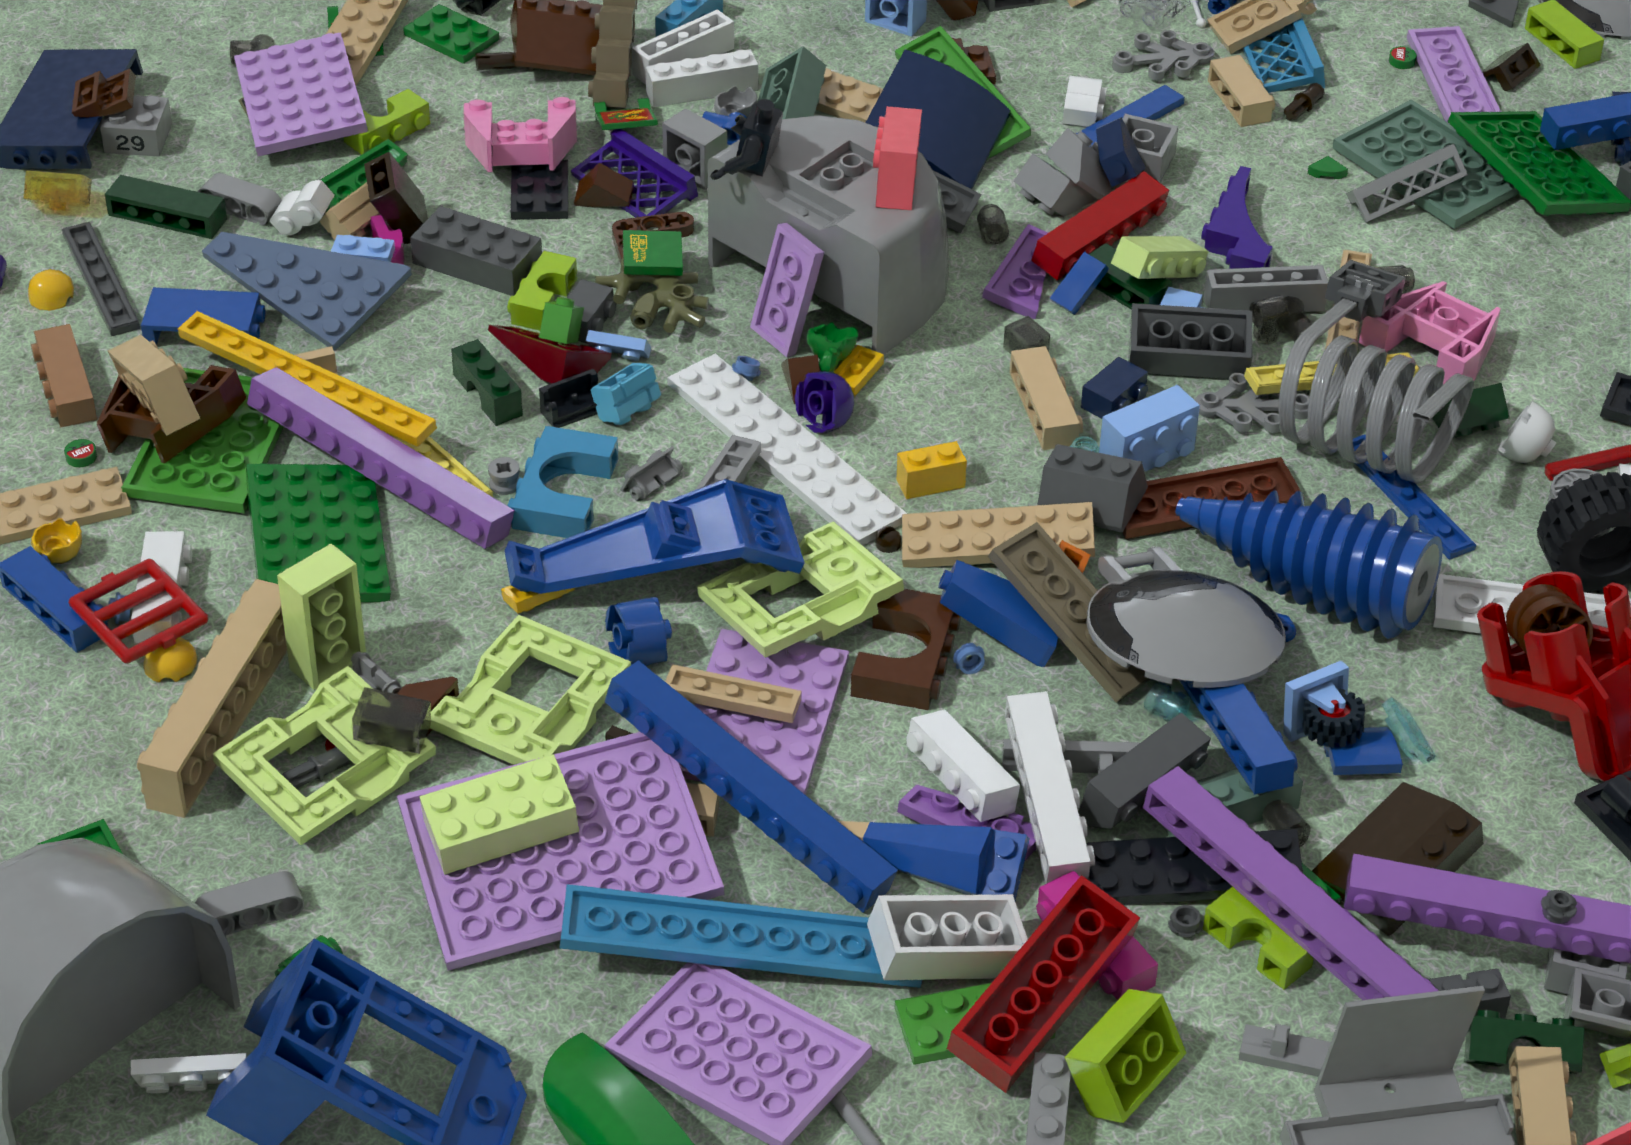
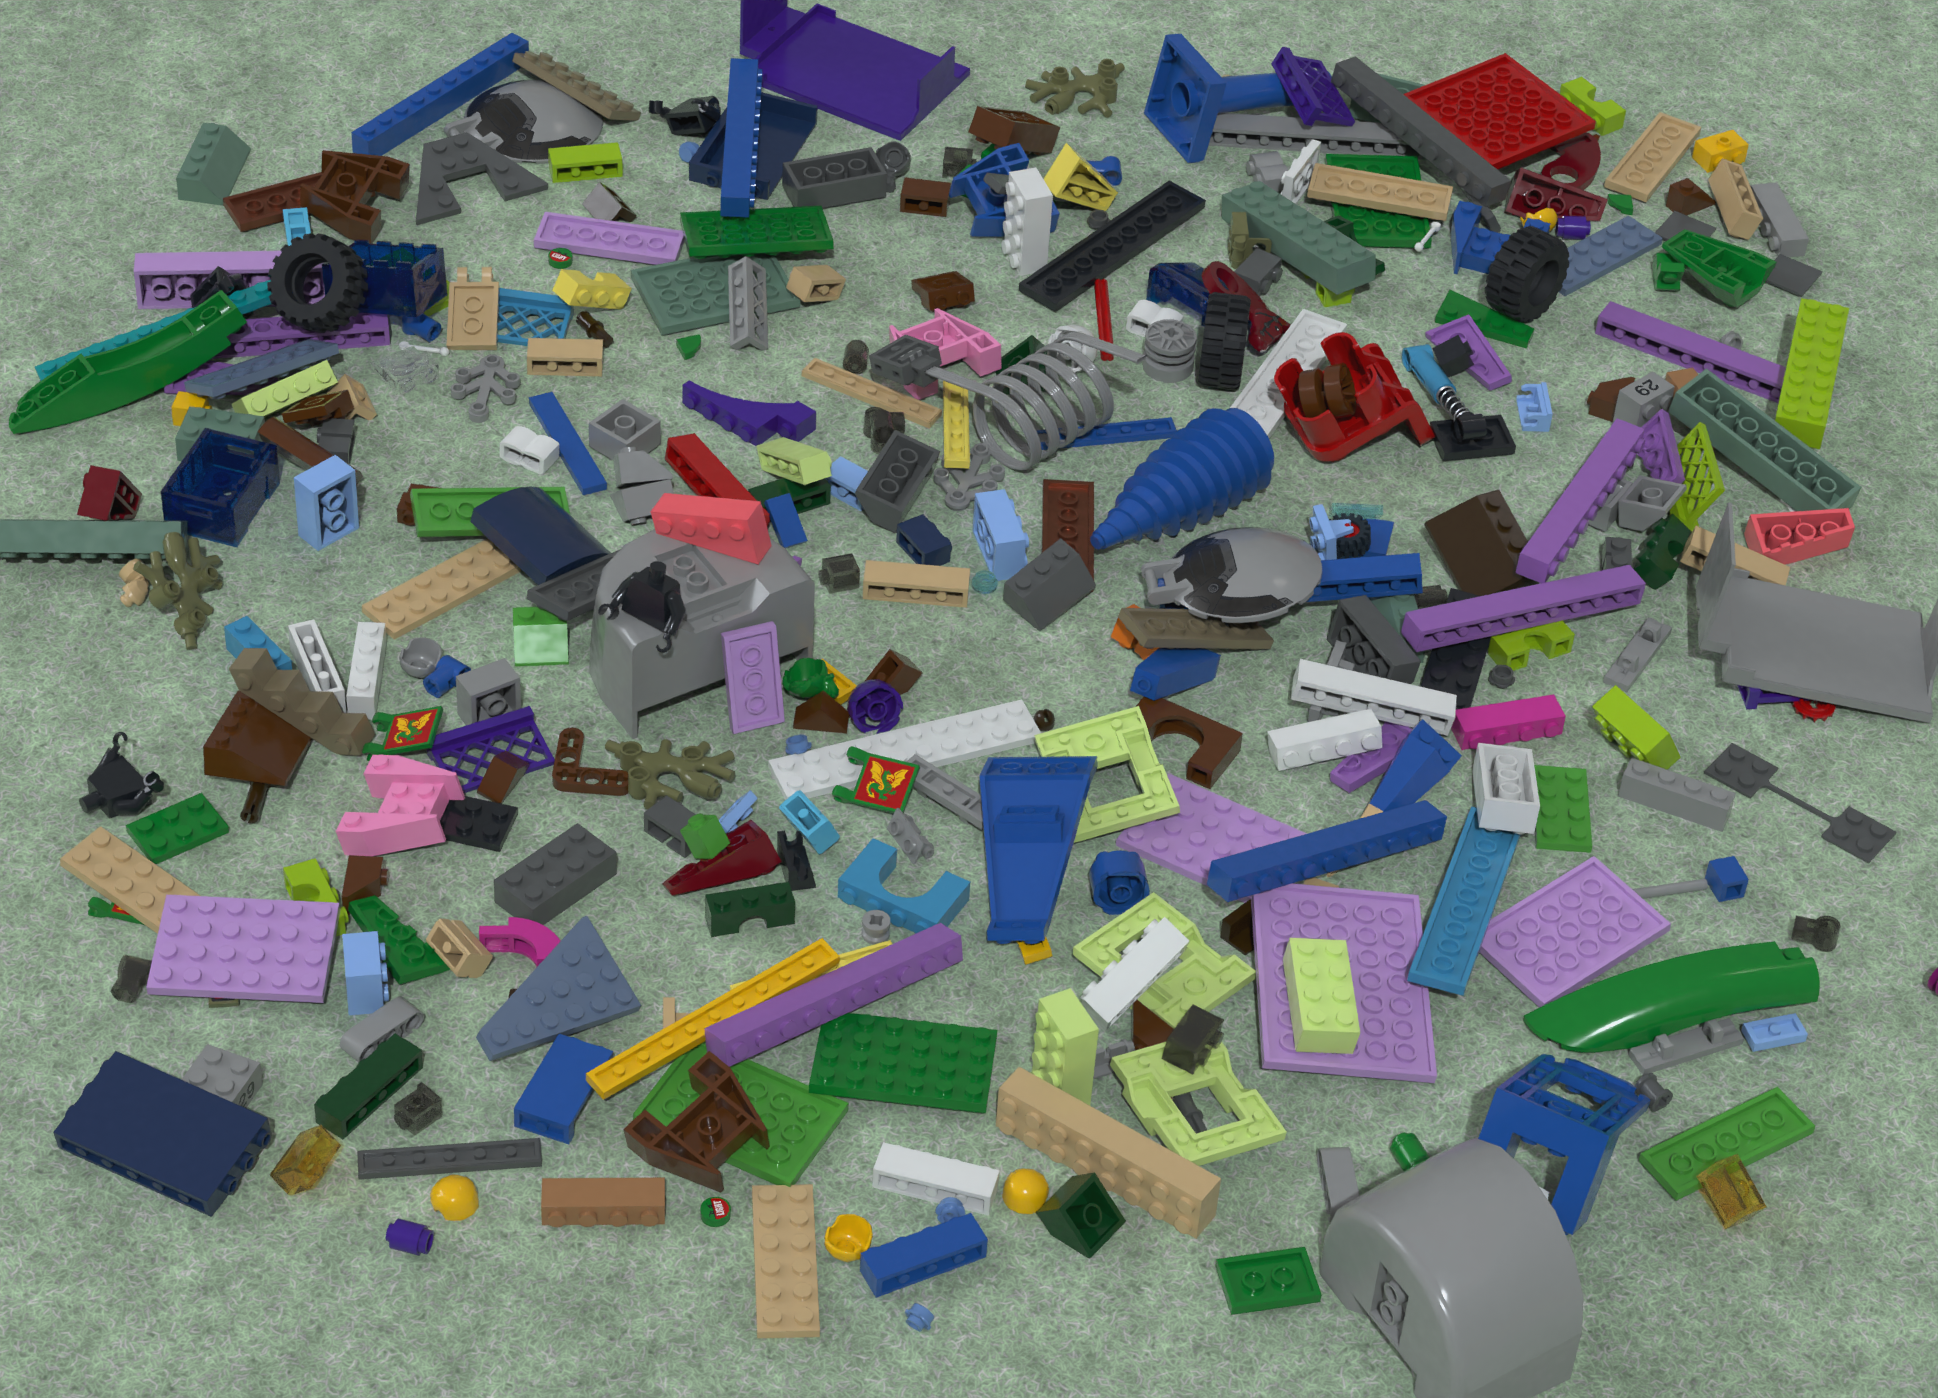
camera: 75 degrees left, 0 degrees up
(102, 96) = (193, 1083): reddish brown slope -> none
(113, 637) = (983, 1217): red bar -> none
(136, 702) = (1082, 1214): none -> dark green slope
(147, 242) = (418, 1110): none -> clear smoke brick
(155, 382) = (706, 1105): tan wedge -> none
(291, 159) = (365, 972): none -> light blue brick
(302, 208) = (437, 981): white brick -> none
(365, 247) = (536, 945): light blue plate -> none
(395, 195) = (472, 902): dark brown brick -> none
(422, 141) = (363, 878): none -> reddish brown slope
(468, 649) = (1134, 974): none -> white brick
(547, 276) = (647, 859): lime arch -> none
(652, 253) = (637, 755): green tile -> none
(710, 431) = (881, 783): none -> flag
(735, 693) = (1210, 842): tan plate -> none
(794, 84) = (456, 627): sand green slope -> none
(885, 409) = (896, 671): none -> reddish brown slope
(931, 470) = (981, 669): yellow brick -> none
(970, 535) = (1073, 654): tan plate -> none
(974, 663) = (1200, 707): medium blue plate -> none
(1042, 983) = (1571, 748): red brick -> none
(1118, 152) = (648, 439): dark blue slope -> none
(1166, 702) = (1293, 619): clear light blue wheel -> none
(1242, 286) = (846, 419): light grey brick -> none
(1328, 65) = (603, 292): none -> light yellow arch
(1484, 221) = (815, 283): none -> tan brick
(1556, 319) = (944, 290): none -> reddish brown plate
(1558, 906) = (1595, 477): dark grey plate -> none

